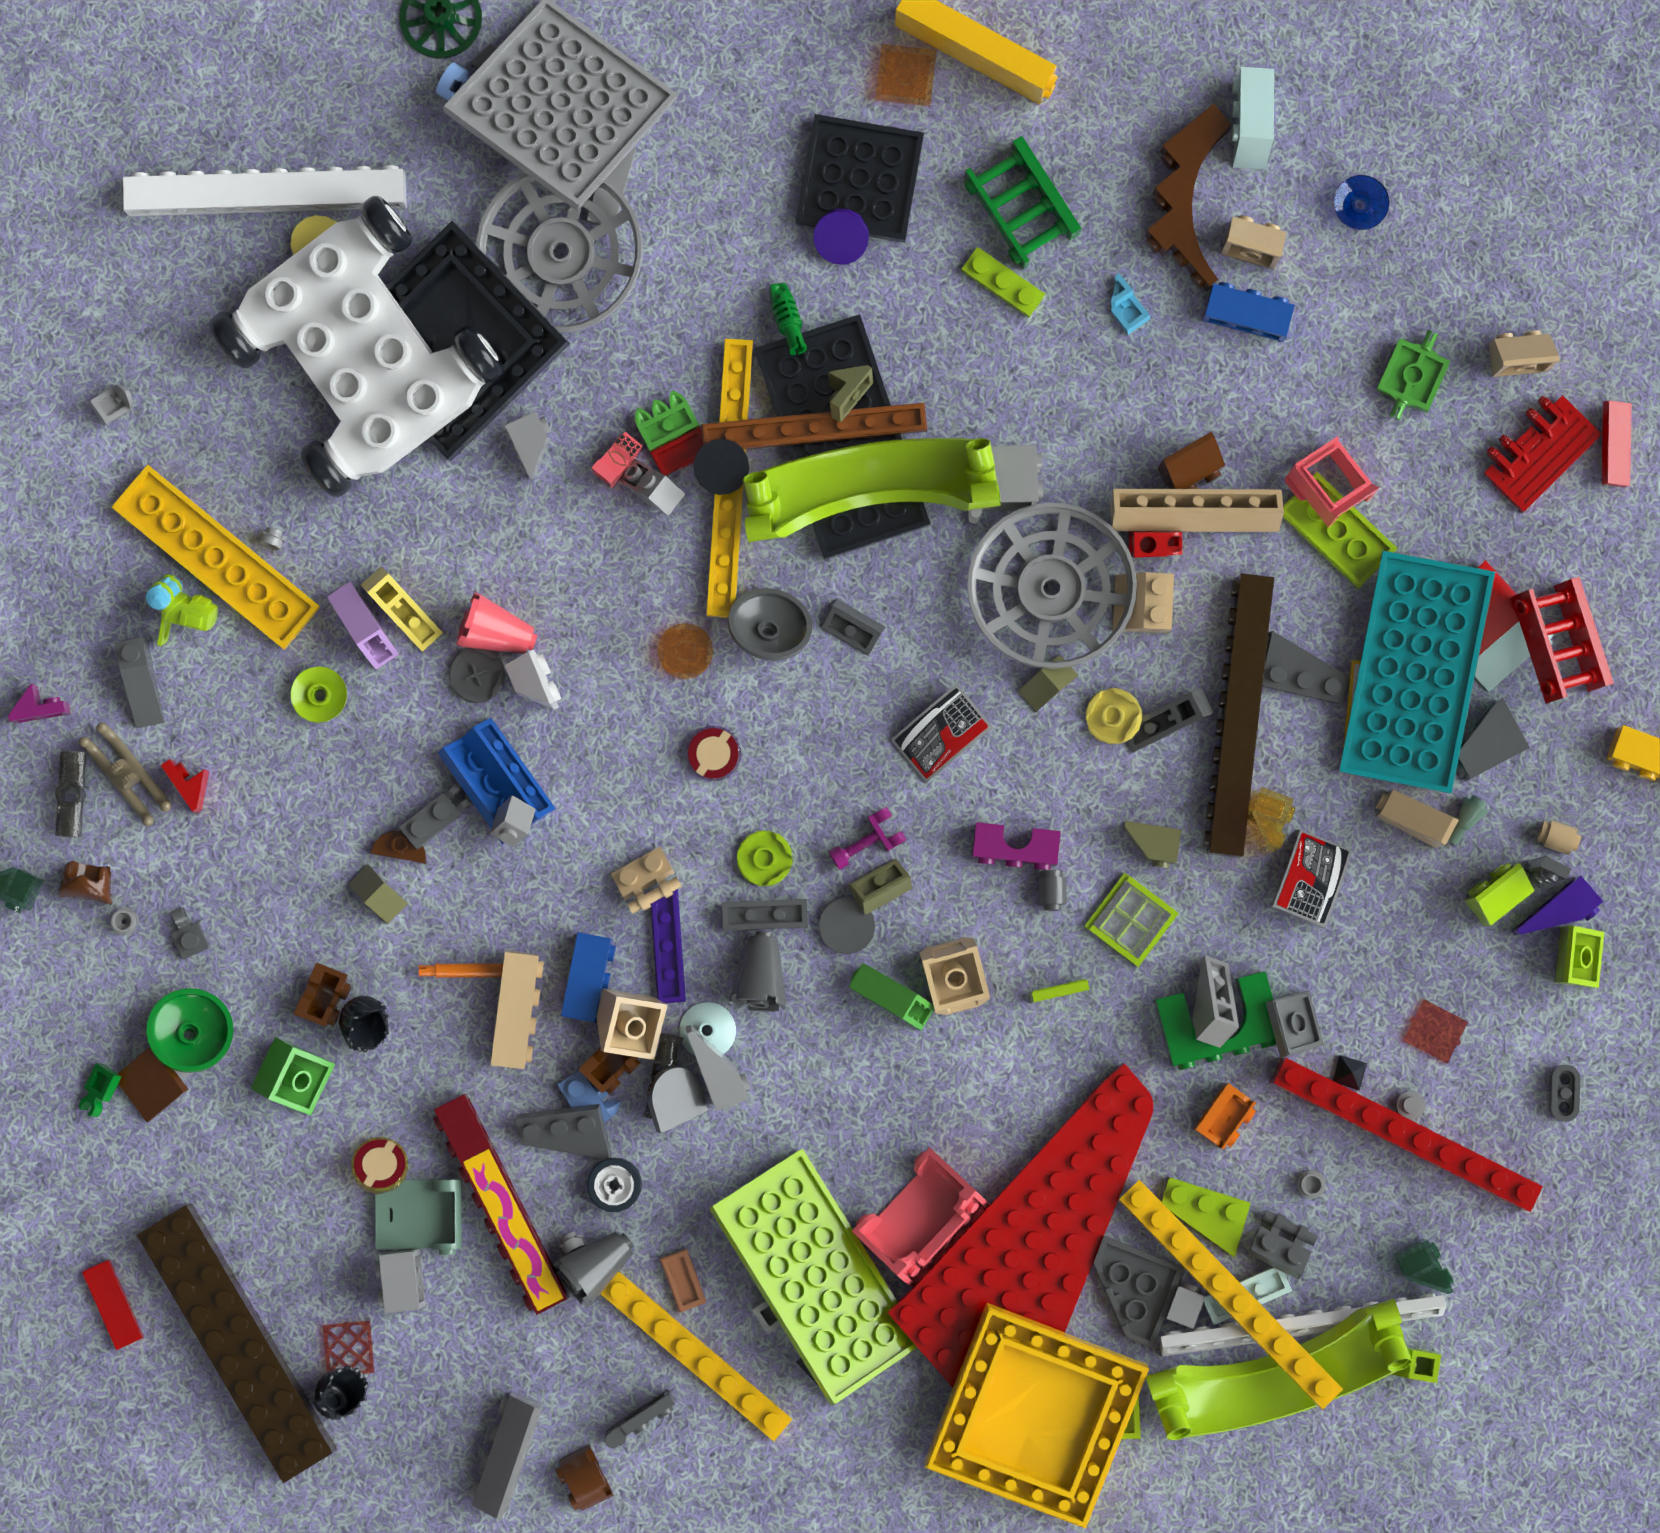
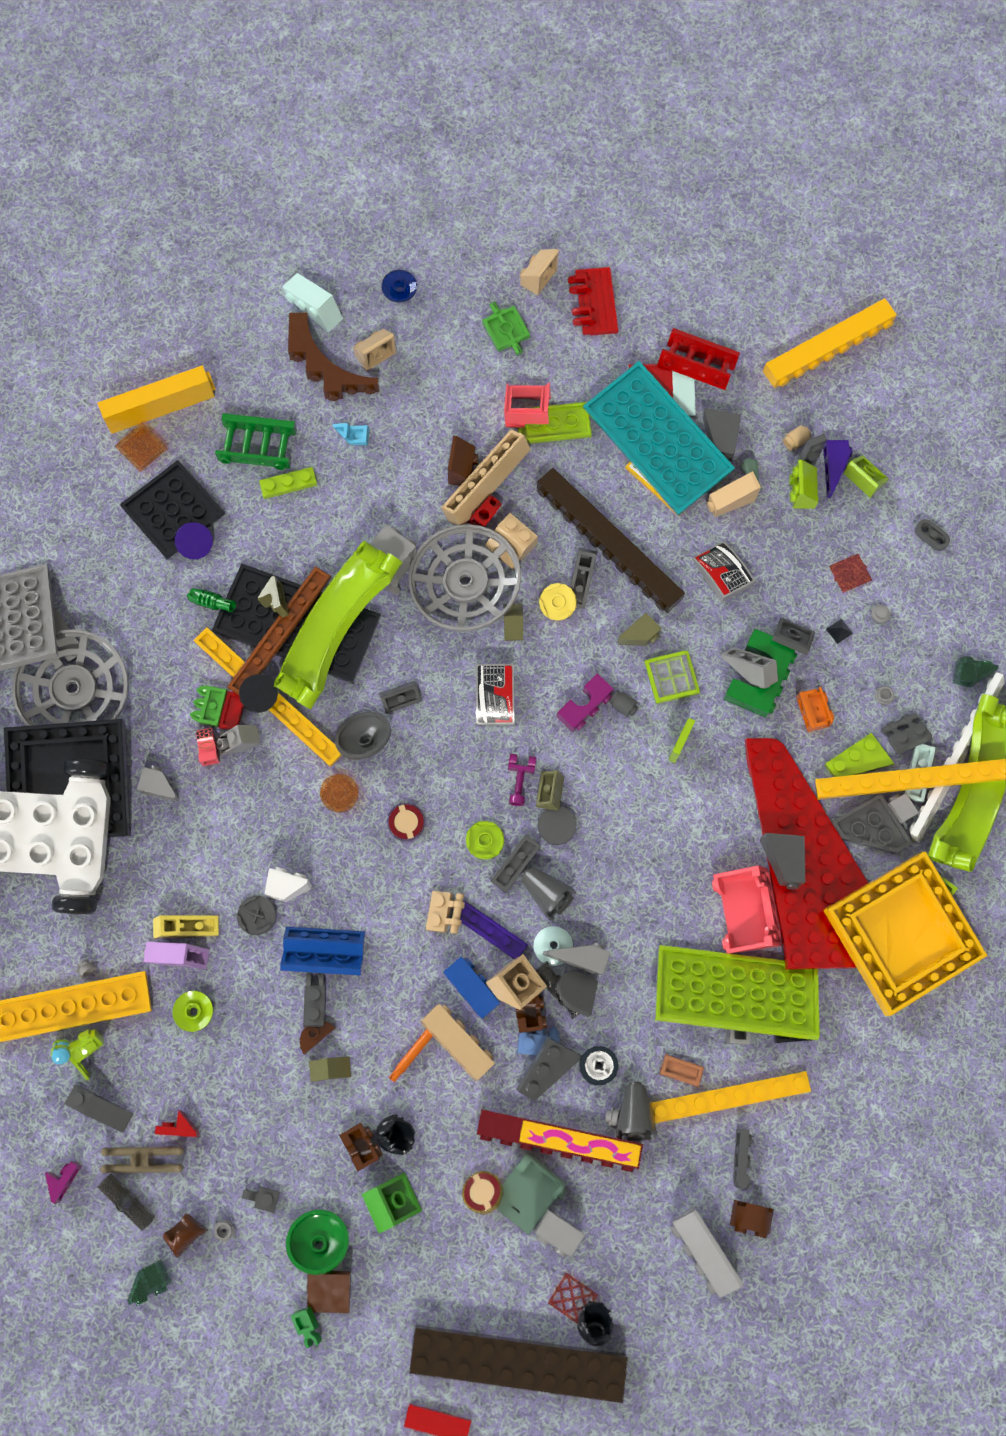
camera: 50 degrees left, 10 degrees down
(494, 628) = (239, 884): coral cone -> none
(512, 821) = (352, 957): light grey brick -> none
(891, 996) = (613, 830): bright green slope -> none
(954, 976) = (629, 788): tan slope -> none
(1012, 1216) = (786, 858): none -> dark grey slope
(1248, 311) = (407, 378): blue brick -> none
(1267, 817) = (676, 565): clear yellow slope -> none
(1301, 673) = (613, 494): dark grey wing -> none
(1406, 1134) = (894, 627): red brick -> none
(1616, 443) = (620, 264): tile -> none

